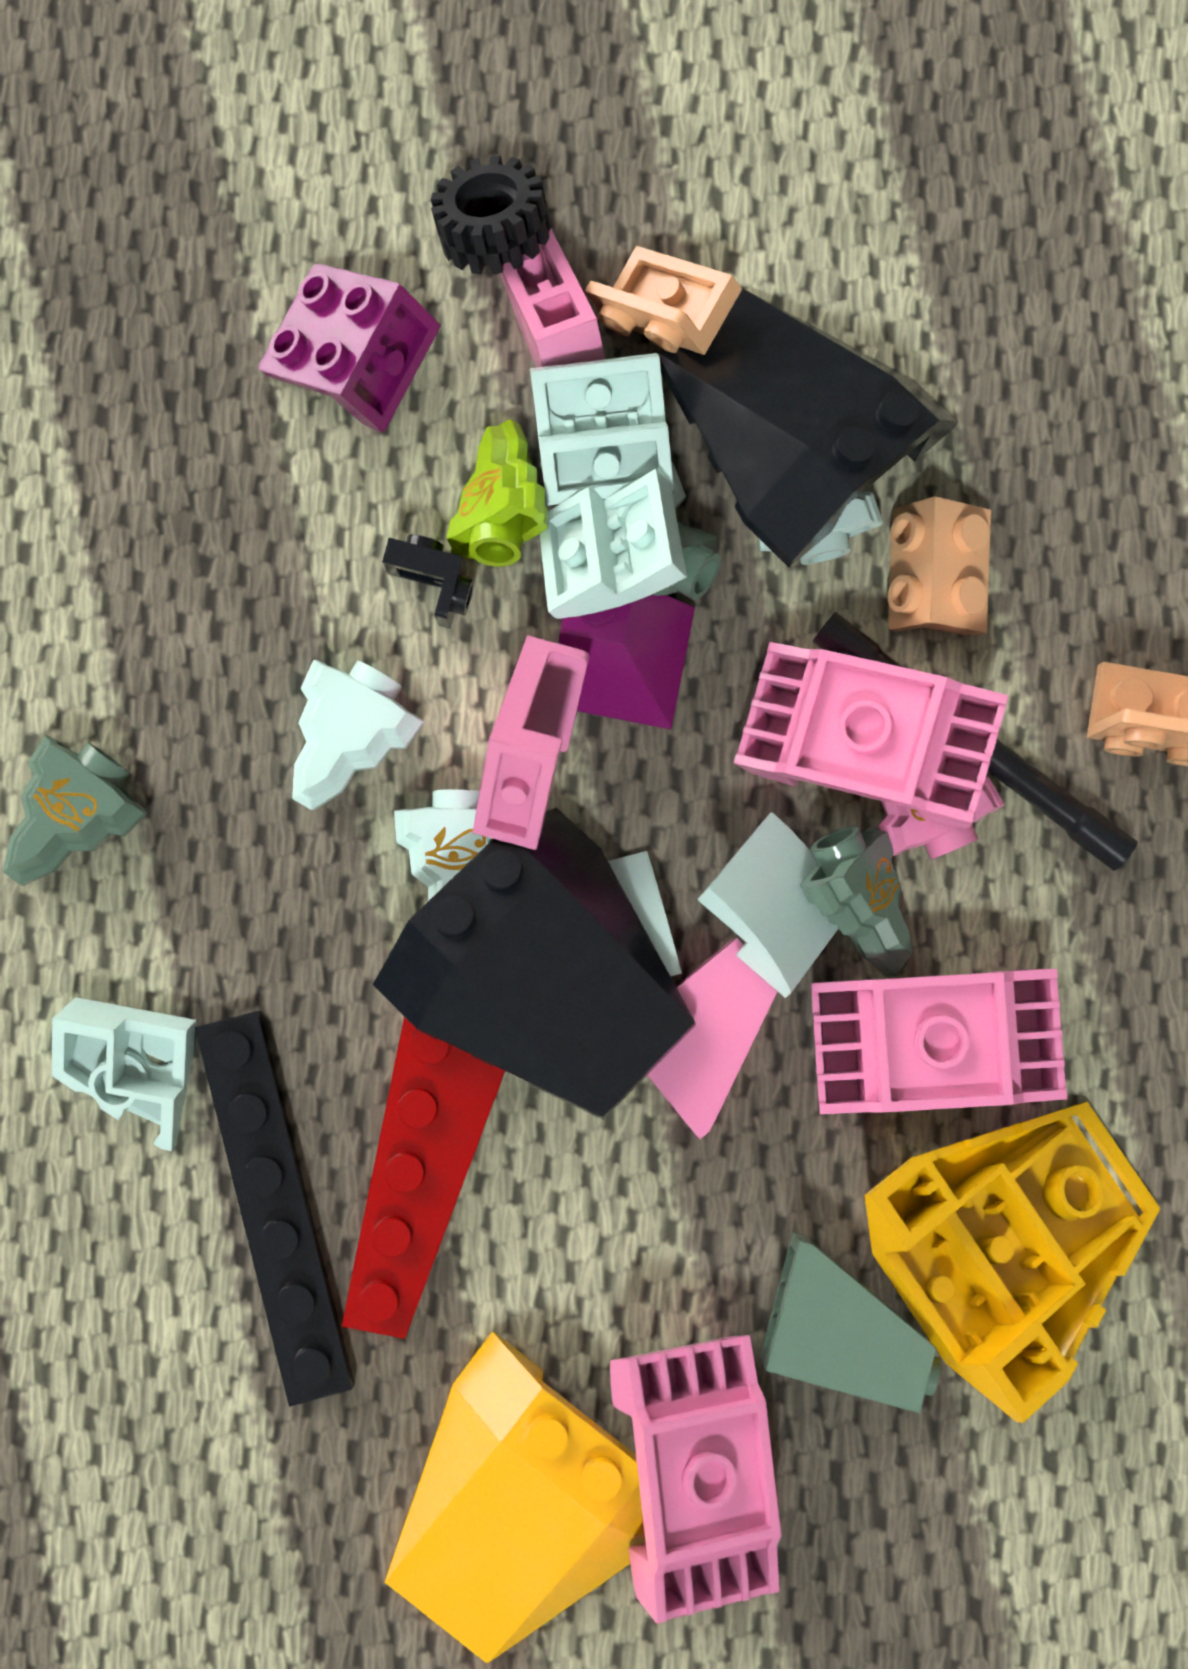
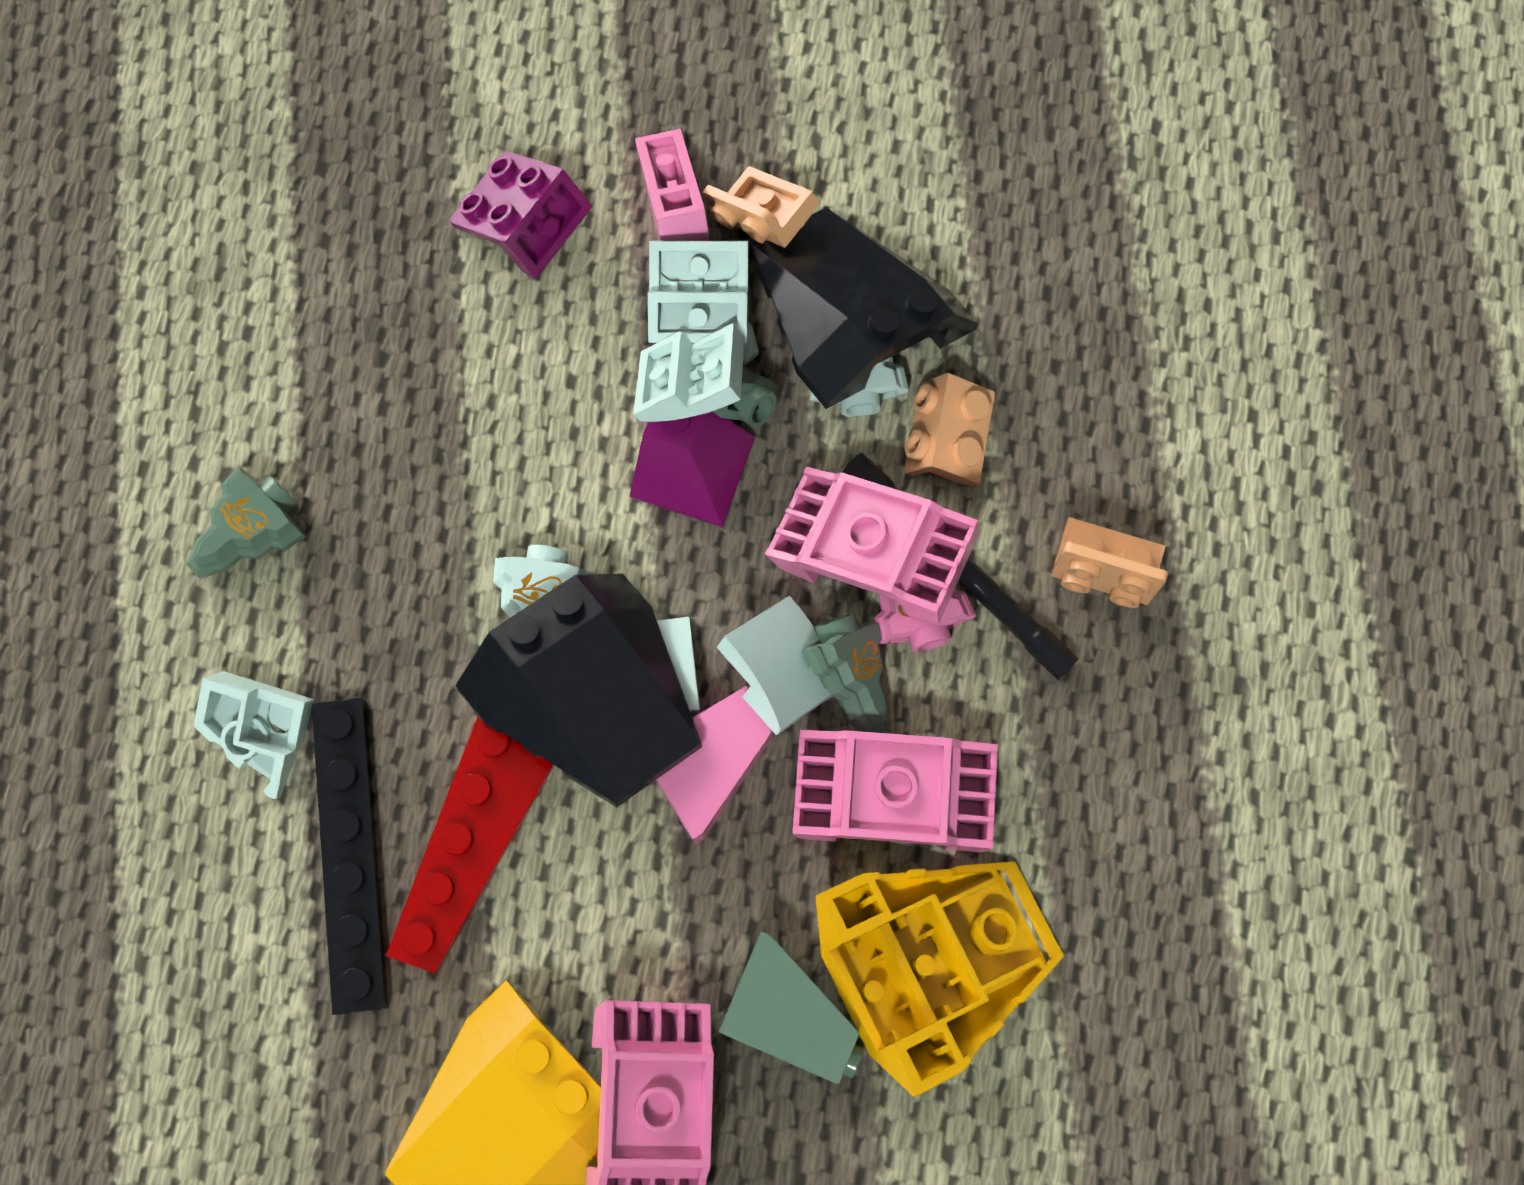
camera: 15 degrees right, 10 degrees down
(347, 728) = (469, 492): light aqua rock -> none
(425, 562) = (554, 377): black bracket -> none
(497, 189) = (641, 130): black tyre -> none
(500, 501) = (614, 337): lime rock -> none
(527, 741) = (606, 496): bright pink panel -> none

